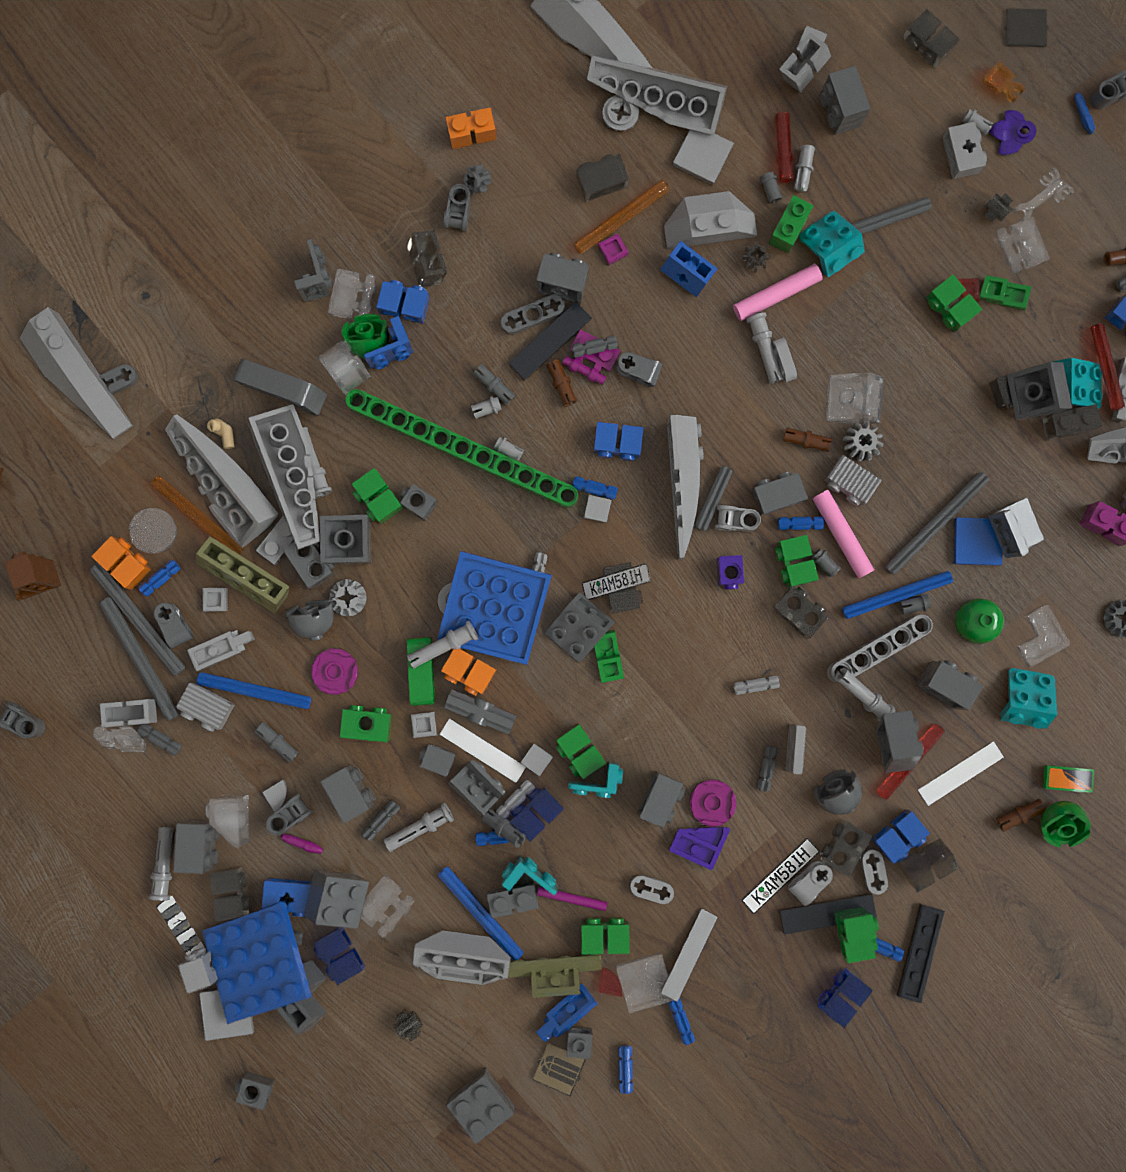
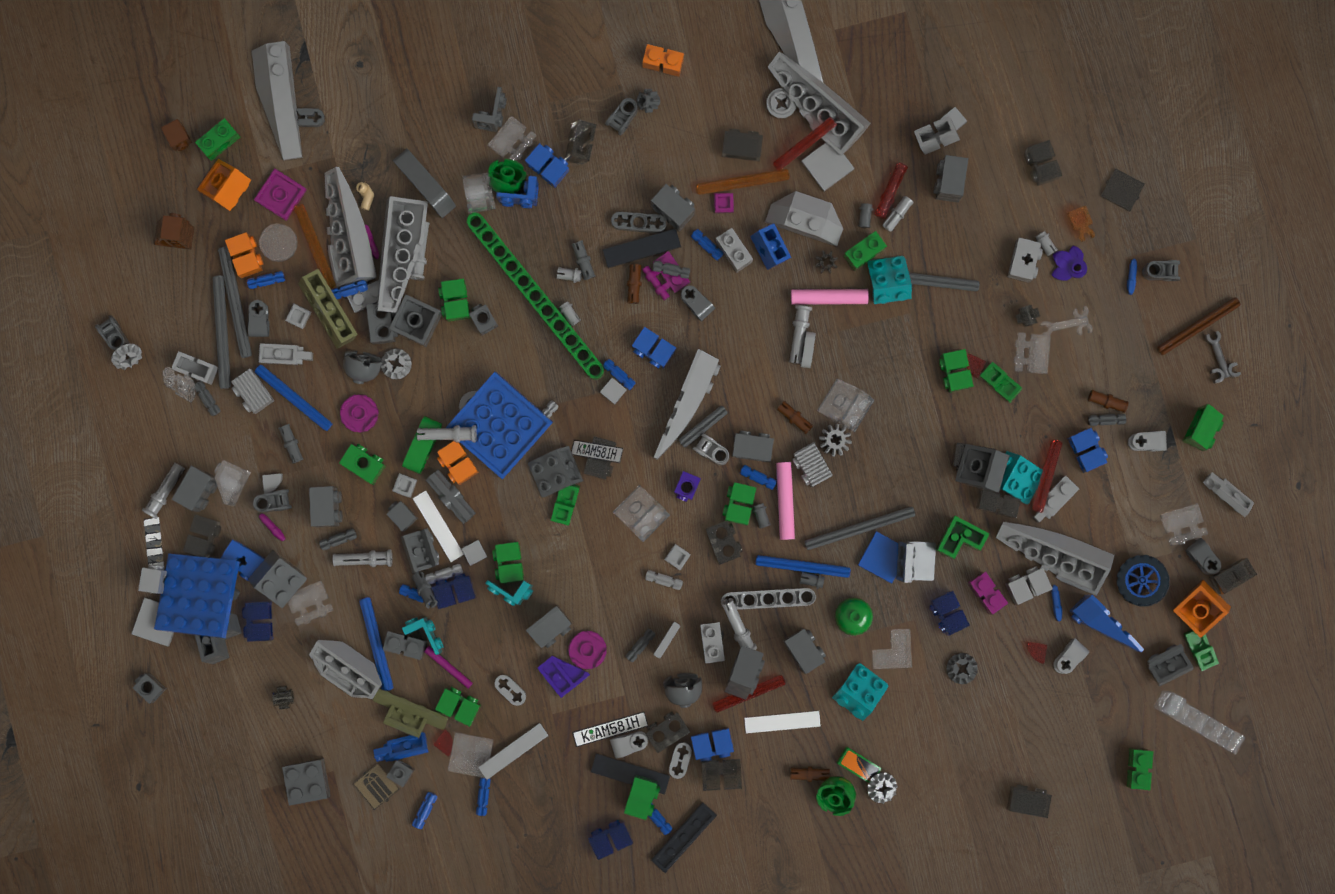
camera: 30 degrees right, 0 degrees up
(29, 451) = (217, 139): none -> green brick
(48, 728) = (119, 356): none -> light grey gear
(62, 497) = (224, 184): none -> orange slope
(129, 477) = (280, 194): none -> magenta tile
(256, 541) = (350, 289): none -> blue axle
(263, 487) = (375, 253): none -> magenta piece
(618, 302) = (707, 244): none -> blue axle
(651, 292) = (734, 250): none -> light grey brick
(669, 141) = (805, 143): none -> clear red axle
(696, 625) = (641, 513): none -> clear slope
(758, 652) = (677, 557): none -> light grey tile
(844, 726) = (712, 642): none -> light grey brick
(1048, 474) = (959, 533): none -> green brick
(1074, 562) = (952, 622): none -> clear blue piece
(1099, 787) = (877, 782): none -> light grey gear

